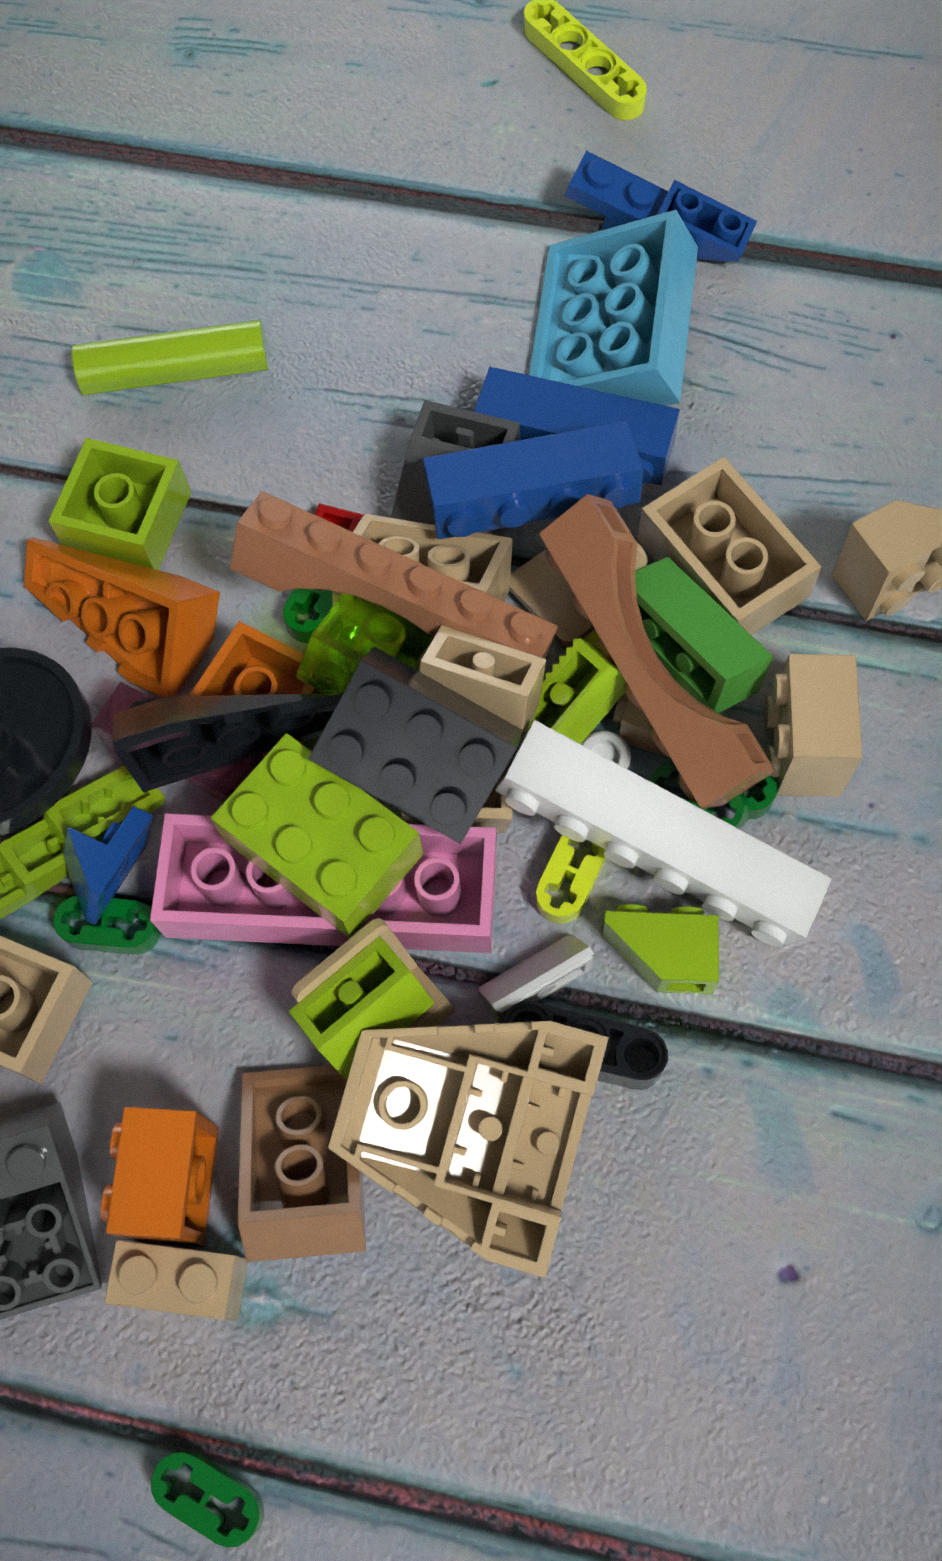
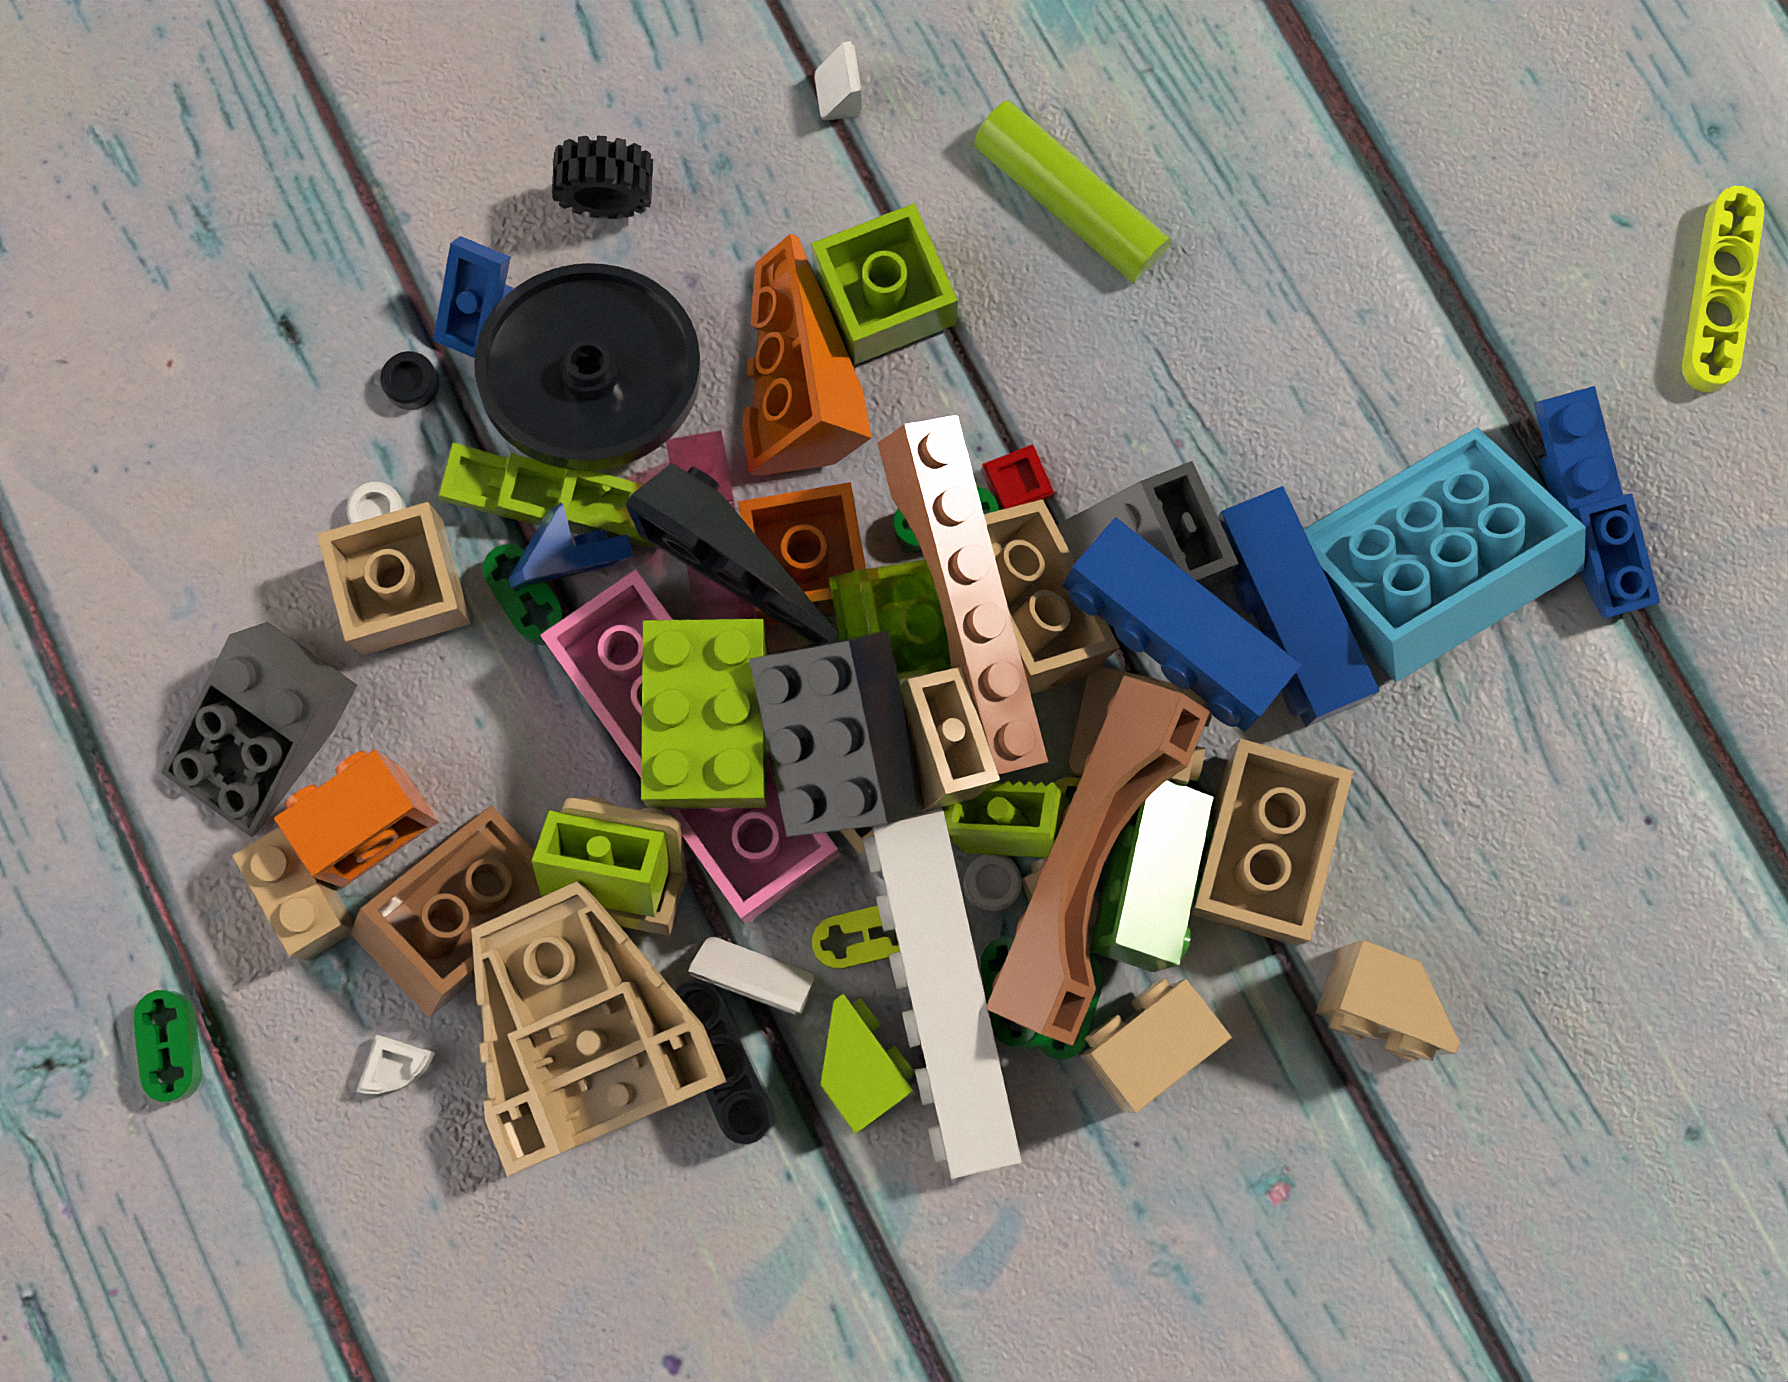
camera: 45 degrees right, 10 degrees up
(379, 1315) = (393, 1066): none -> white tile

